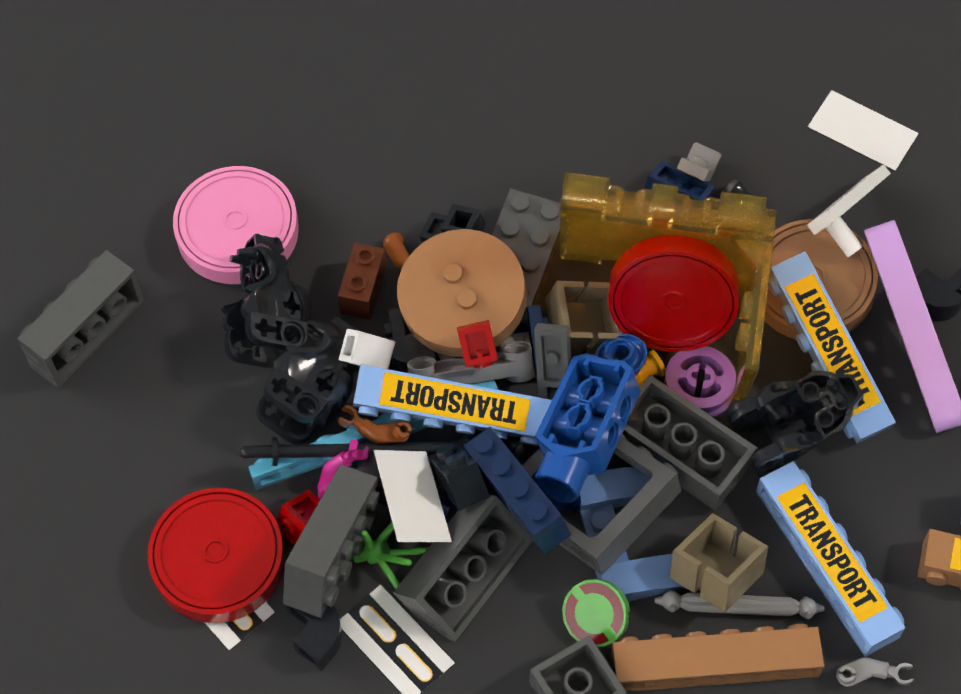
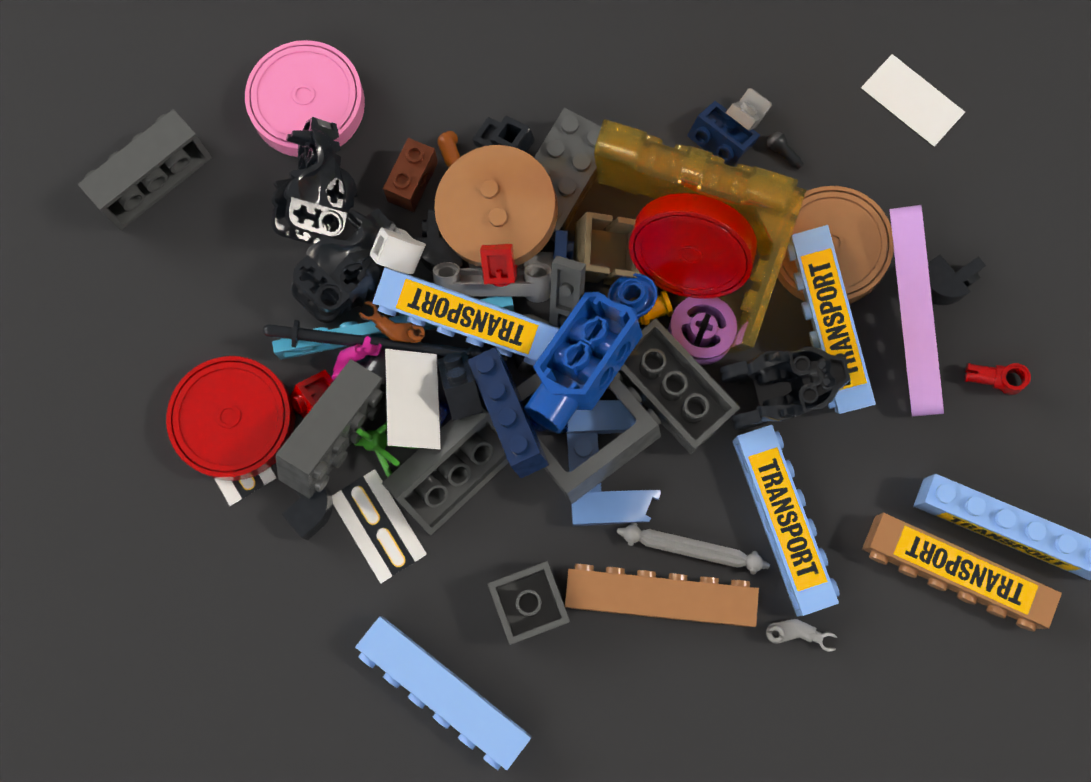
camera: 10 degrees right, 15 degrees up
(596, 610) = (560, 535): bright green tile -> none
(707, 562) = (674, 513): dark tan piece -> none
(831, 219) = (861, 190): white piece -> none

